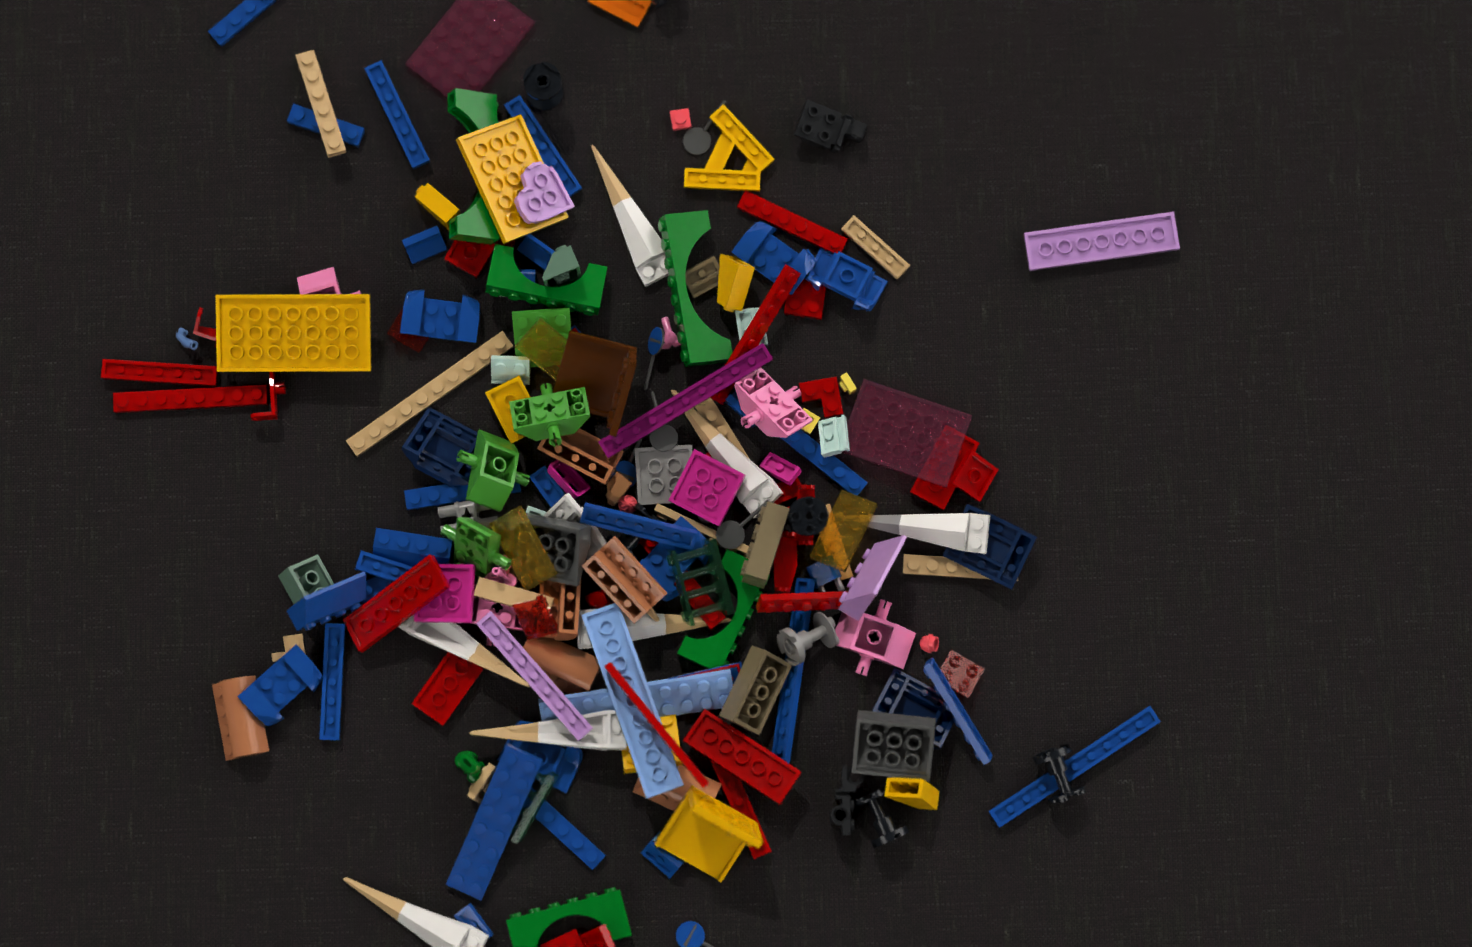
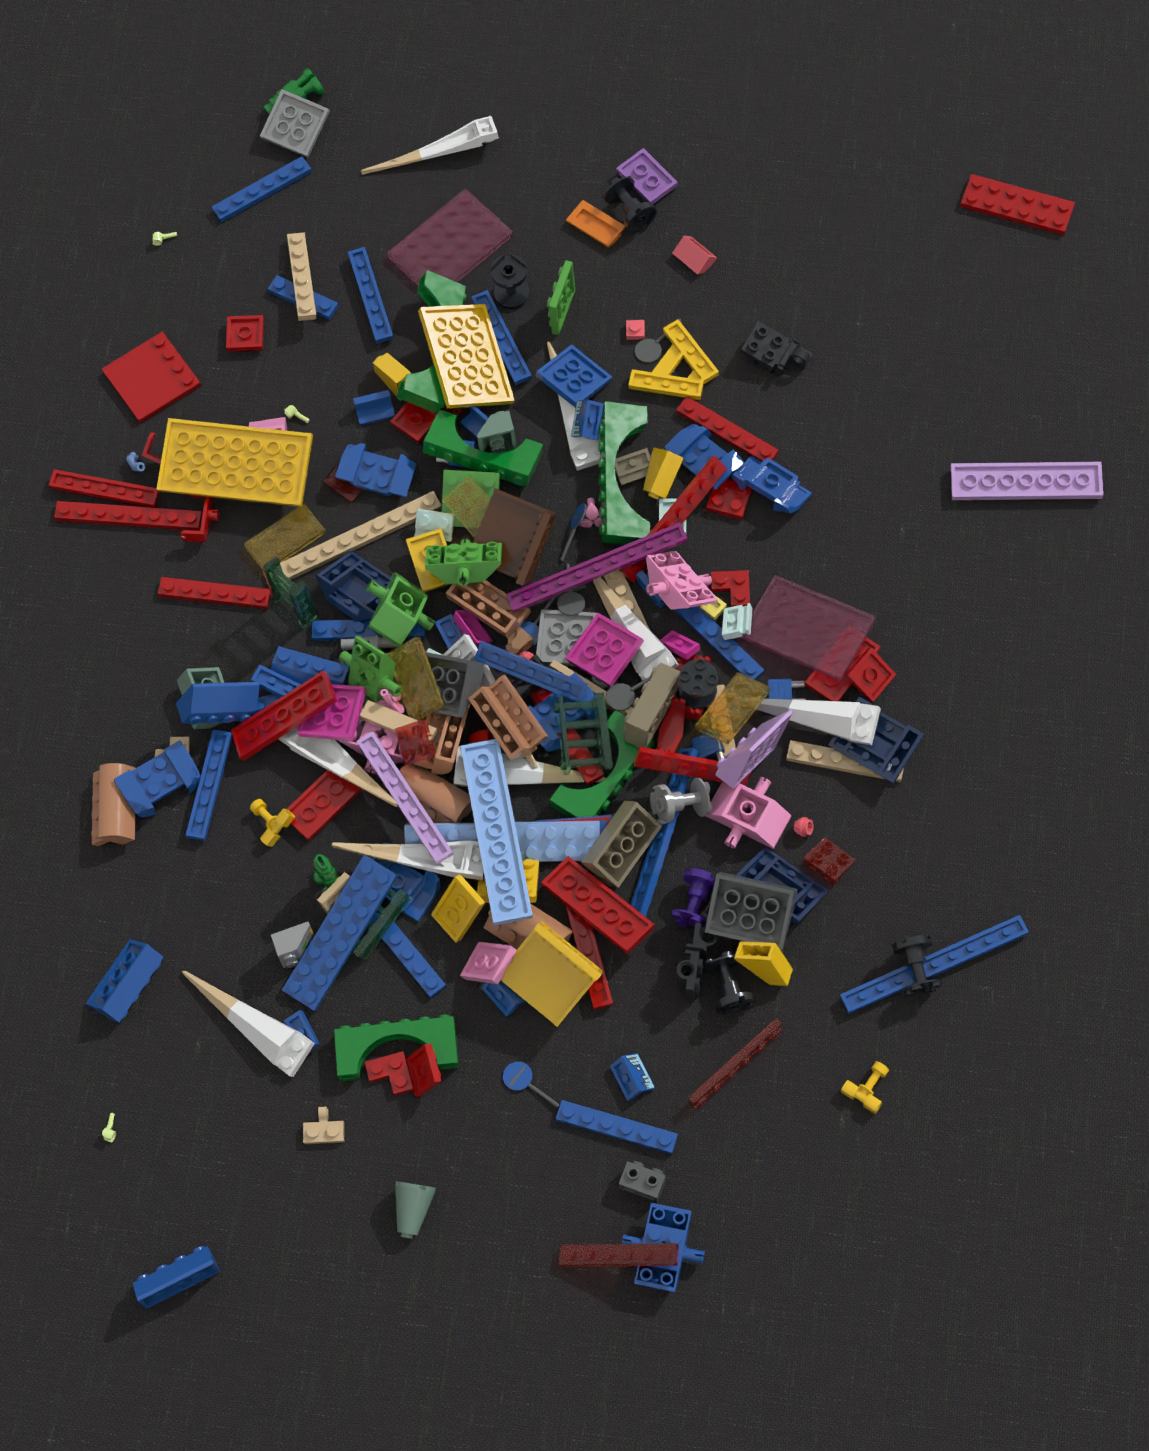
camera: 20 degrees right, 15 degrees down
(157, 73) = (157, 237): none -> yellowish green hand
(182, 238) = (151, 377): none -> red plate
(272, 175) = (245, 333): none -> red plate
(288, 897) = (125, 980): none -> blue slope
(297, 472) = (214, 593): none -> red plate
(338, 259) = (290, 411): none -> yellowish green hand
(357, 402) = (285, 536): none -> clear yellow plate
(392, 481) = (293, 594): none -> clear green fence
(406, 716) = (273, 823): none -> yellow bar
(449, 840) = (292, 943): none -> light grey slope
(542, 194) = (491, 373): lavender plate -> none
(599, 99) = (562, 297): none -> bright green plate
(606, 780) = (458, 908): none -> yellow plate
(626, 184) = (573, 375): none -> blue plate
(645, 831) = (488, 962): none -> bright pink plate
(649, 236) = (587, 419): none -> blue panel
(662, 732) = (515, 854): red tile -> none
(729, 26) = (694, 255): none -> coral brick
(801, 921) = (631, 1076): none -> blue panel
(838, 729) = (701, 885): none -> dark purple piece
(847, 384) = (757, 577): light yellow plate -> none
(875, 247) = (804, 461): tan tile -> none
(888, 502) = (783, 688): none -> blue piece
(904, 888) = (729, 1070): none -> clear red plate
(960, 715) = (824, 897): blue plate -> none
(1024, 905) = (864, 1092): none -> yellow bar

